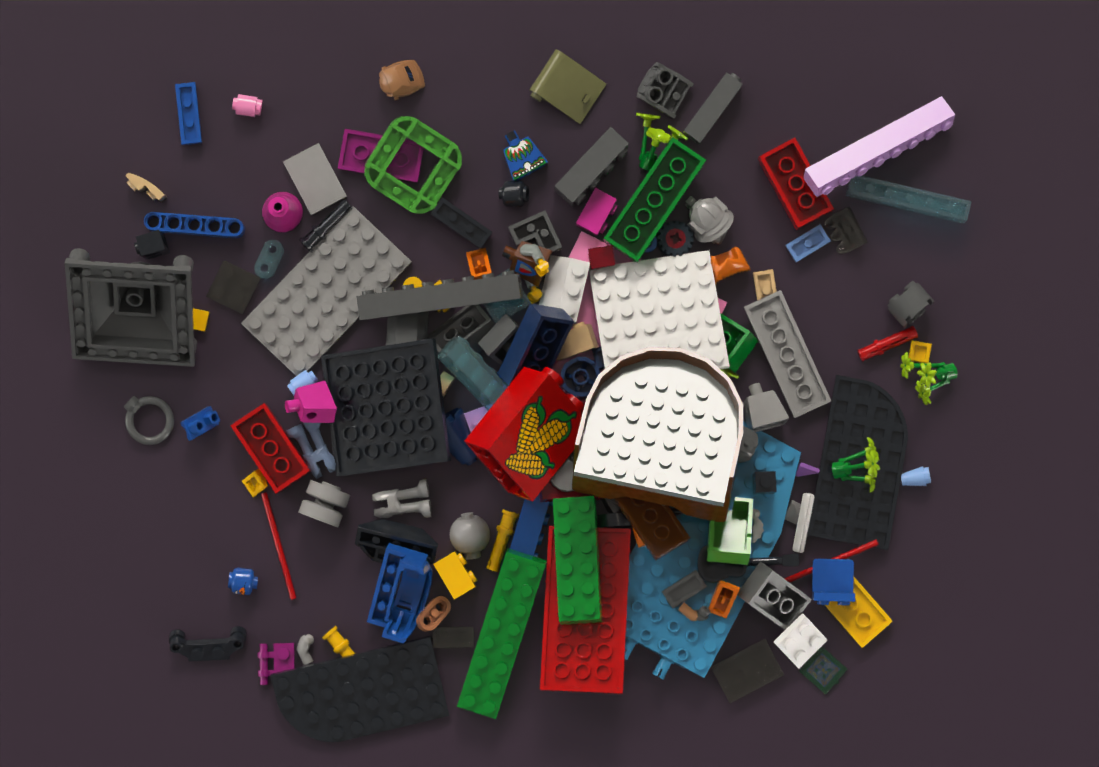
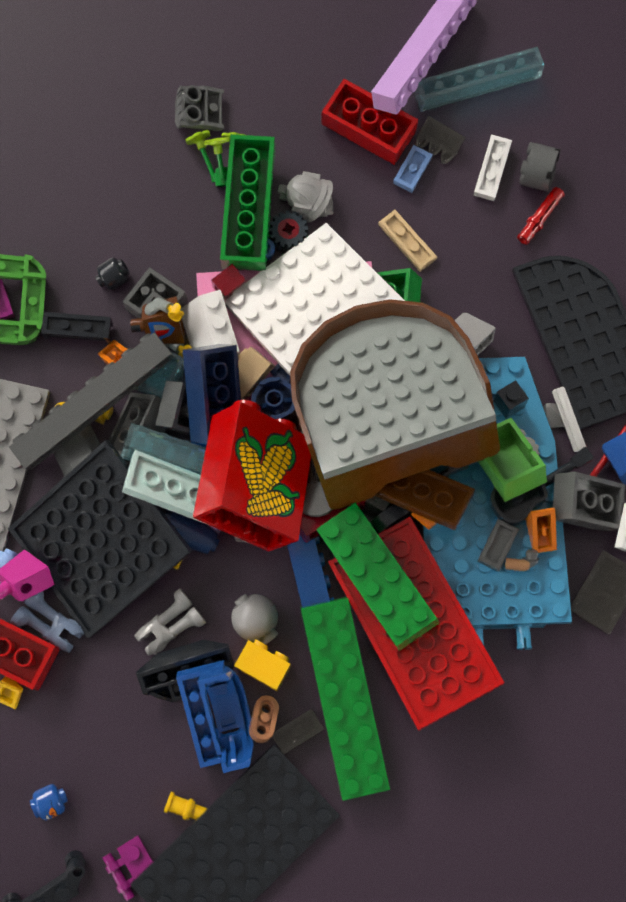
camera: 30 degrees left, 10 degrees down
(278, 545) = (69, 745): red axle -> none
(303, 647) = (150, 834): light grey arm -> none
(326, 498) = (88, 664): light grey wheel -> none
(457, 398) = (162, 484): none -> light aqua plate
(504, 530) = (287, 595): yellow pin -> none
(522, 156) = (101, 236): torso -> none
(565, 85) = (106, 154): olive door -> none
(591, 167) = (171, 207): dark grey brick -> none
(596, 212) = (200, 248): dark pink brick -> none
(713, 108) = (254, 98): dark grey brick -> none
(728, 264) = (353, 224): orange hair -> none
(787, 354) = (456, 274): light grey plate -> none
(805, 469) = (539, 369): medium lavender slope -> none
(844, 468) = (574, 344): plant -> none
(873, 280) = (492, 167): none -> white plate
(919, 351) = (574, 208): yellow tile -> none
(943, 372) = (601, 213): plant -> none

